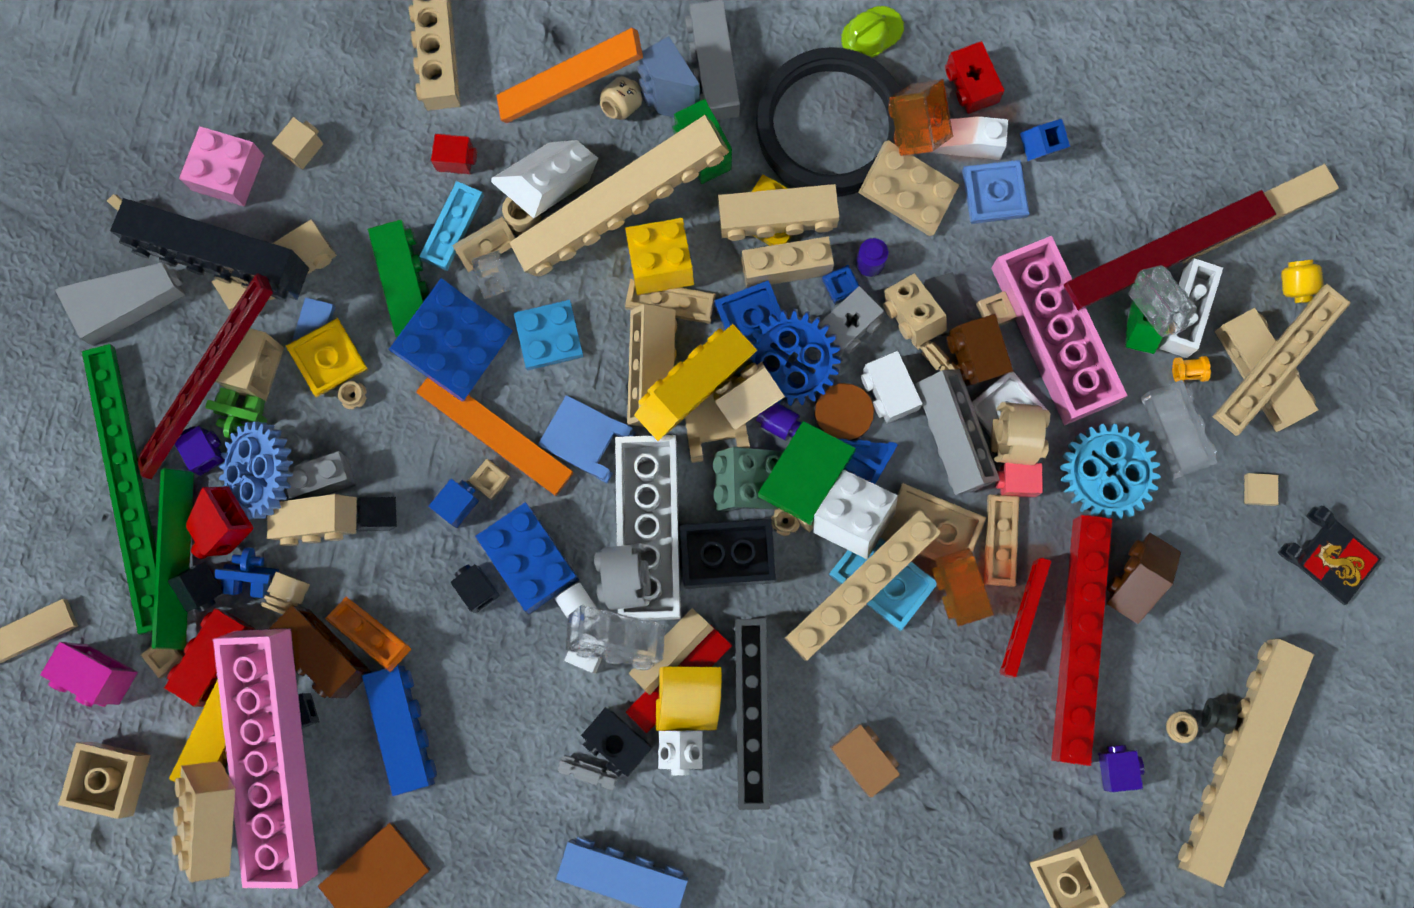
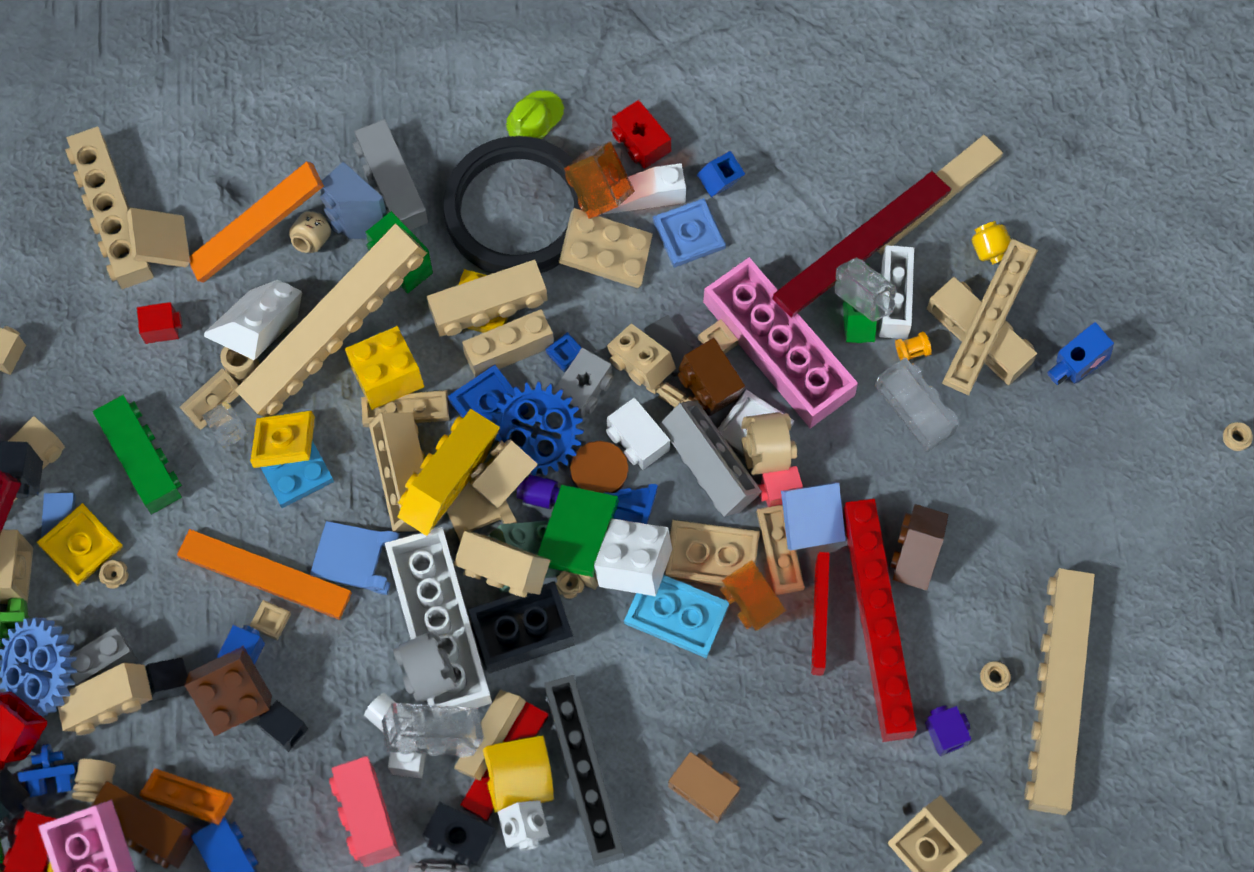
camera: 20 degrees left, 10 degrees down
(430, 544) = (228, 691): none -> reddish brown brick
(451, 225) = (173, 390): medium azure plate -> none
(451, 340) = (200, 495): blue plate -> none
(472, 67) = (158, 237): none -> tan tile
(527, 558) = (327, 682): blue brick -> none
(530, 698) = (363, 812): none -> coral brick
(543, 303) = (282, 439): none -> yellow tile
(724, 489) = (501, 564): none -> tan brick
(862, 585) = (657, 621): tan brick -> none
(872, 257) = (587, 319): dark purple brick -> none
(1044, 518) = (813, 515): none -> medium blue tile
(1129, 455) = (879, 440): medium azure gear -> none
(1219, 716) = (1026, 655): pearl dark grey wheel -> none
(1261, 489) = (1008, 440): tan tile -> none
(1333, 557) = (1090, 484): flag -> none
(1369, 420) = (1090, 349): none -> blue torso

